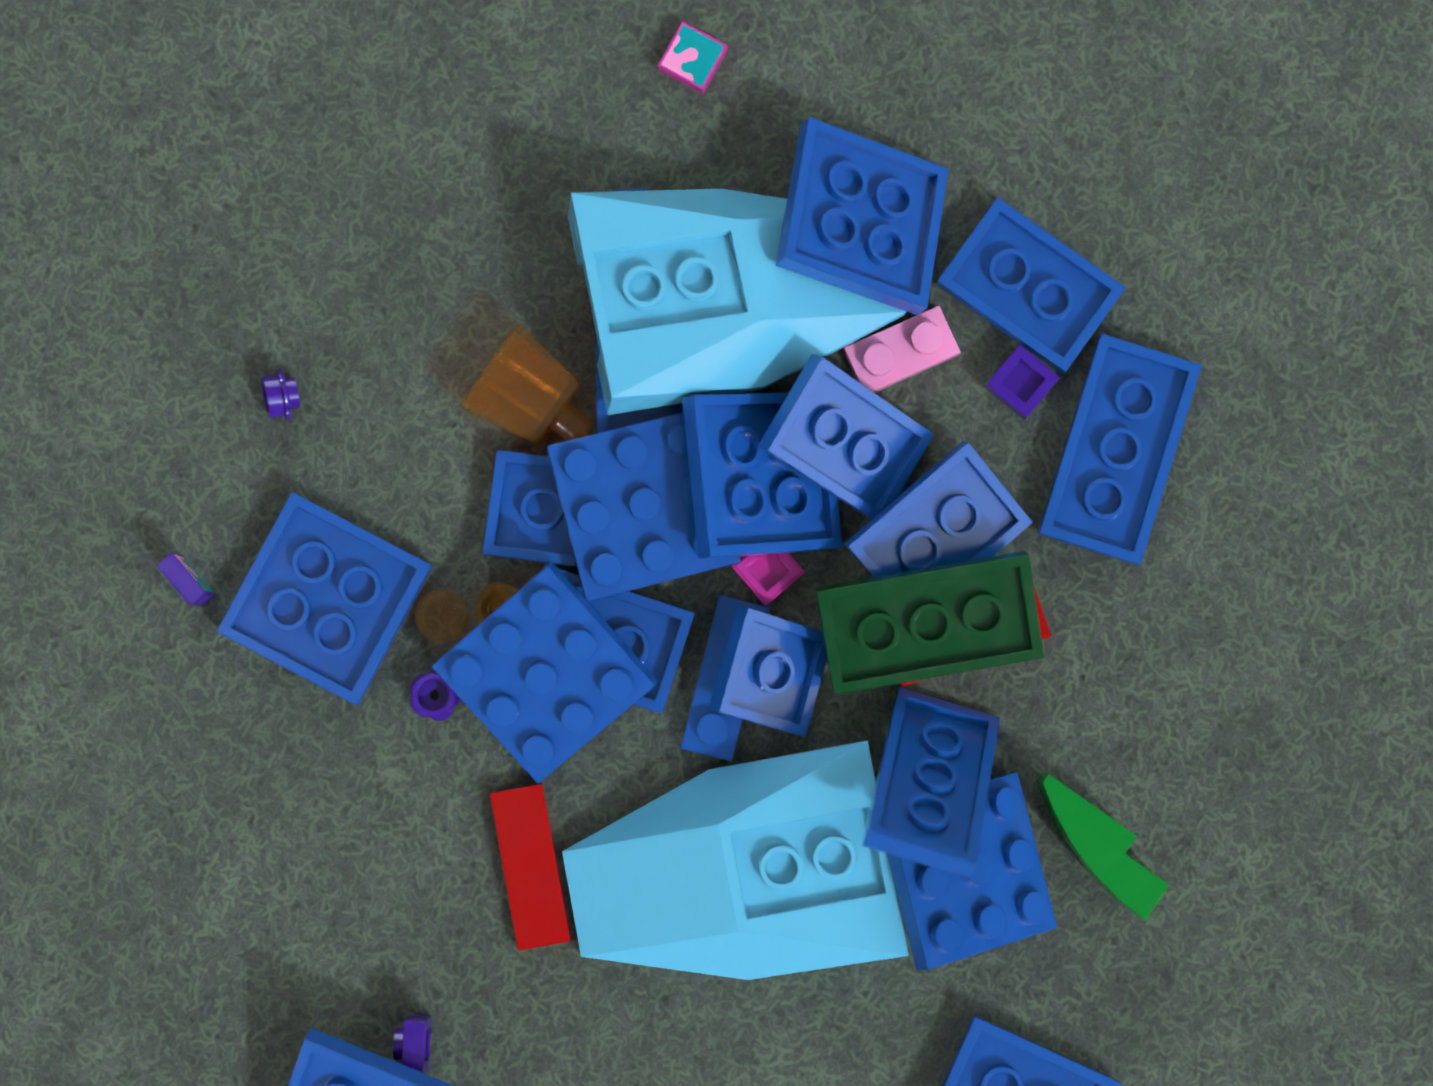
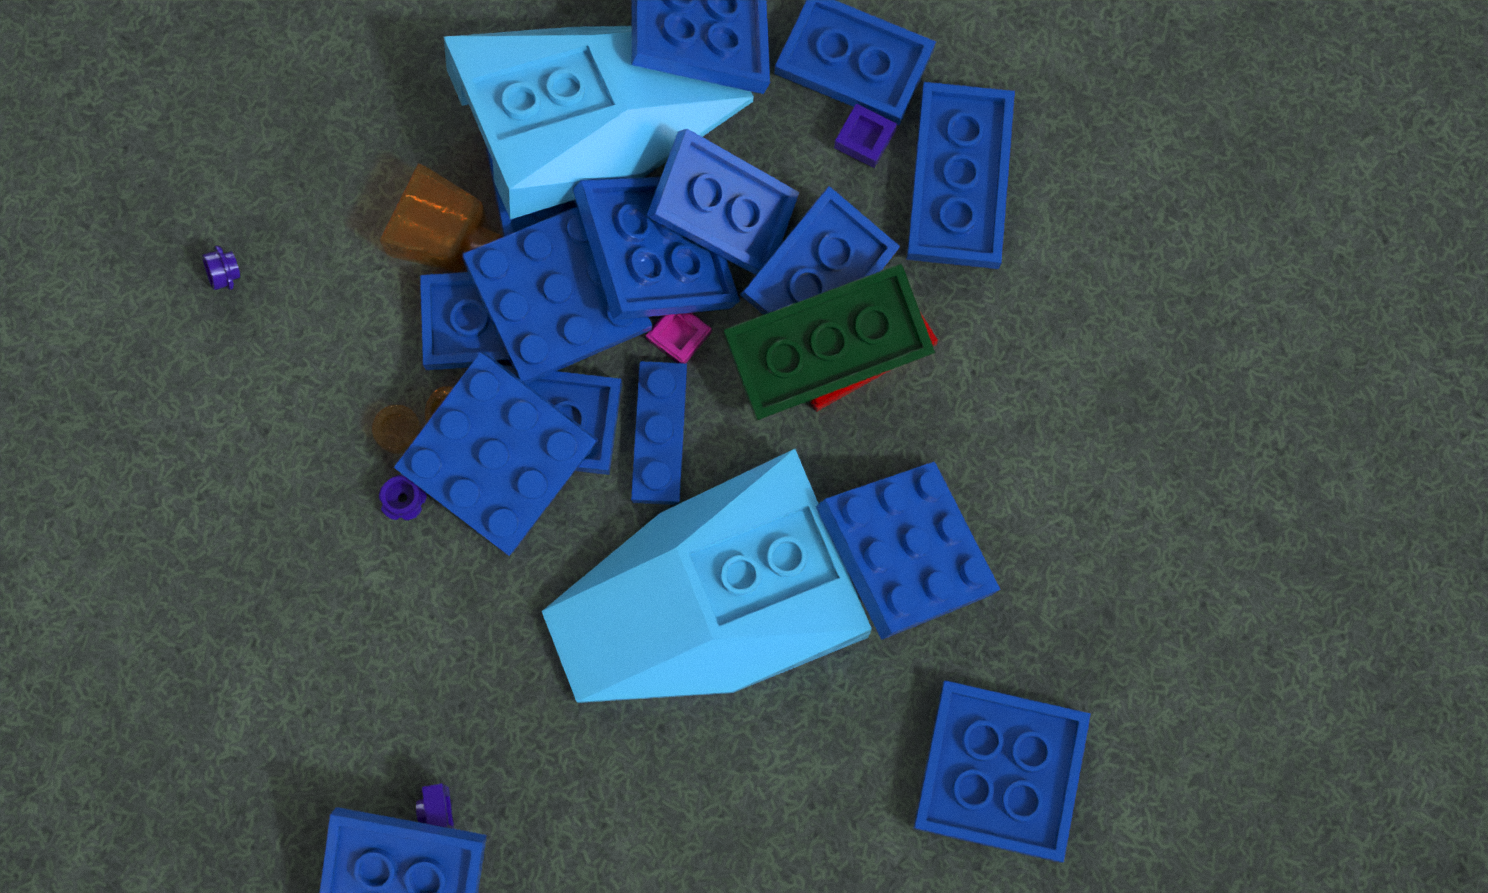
camera: 15 degrees left, 10 degrees down
(185, 580) = (160, 439): dark purple tile -> none
(325, 599) = (289, 433): blue plate -> none
(530, 867) = (516, 632): red tile -> none
(770, 671) = (697, 414): blue plate -> none
(902, 350) = (761, 128): bright pink plate -> none
(933, 783) = (860, 471): blue plate -> none
(1102, 848) = (1021, 509): green slope -> none

